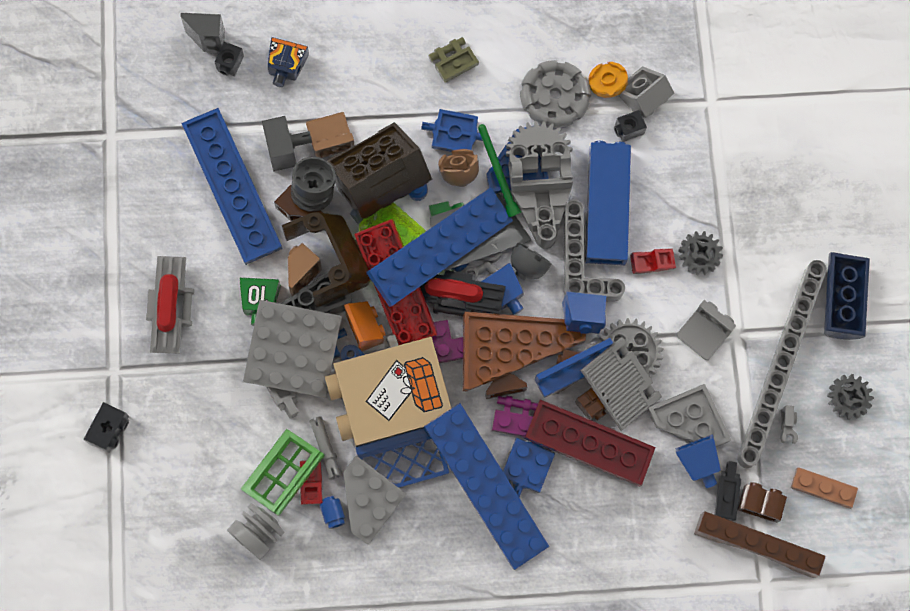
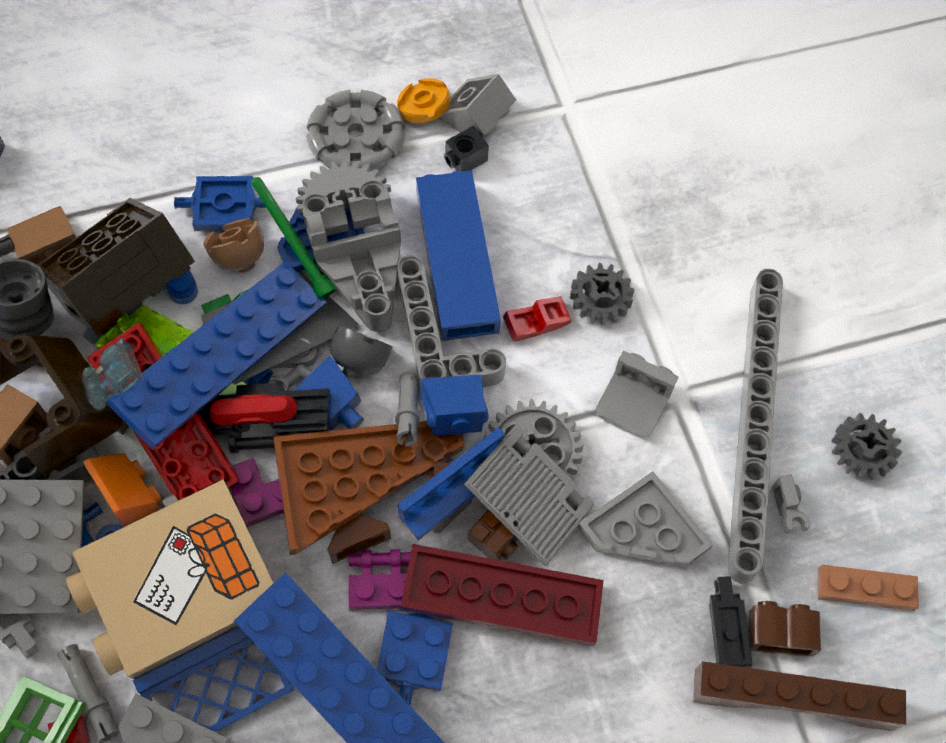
camera: 10 degrees left, 10 degrees down
(377, 251) = (114, 377): none -> clear light blue plate
(455, 64) = (212, 118): olive plate -> none
(553, 313) = (407, 414): none -> light grey pin
(700, 460) = (677, 584): blue torso -> none
(846, 296) = (820, 311): dark blue brick -> none

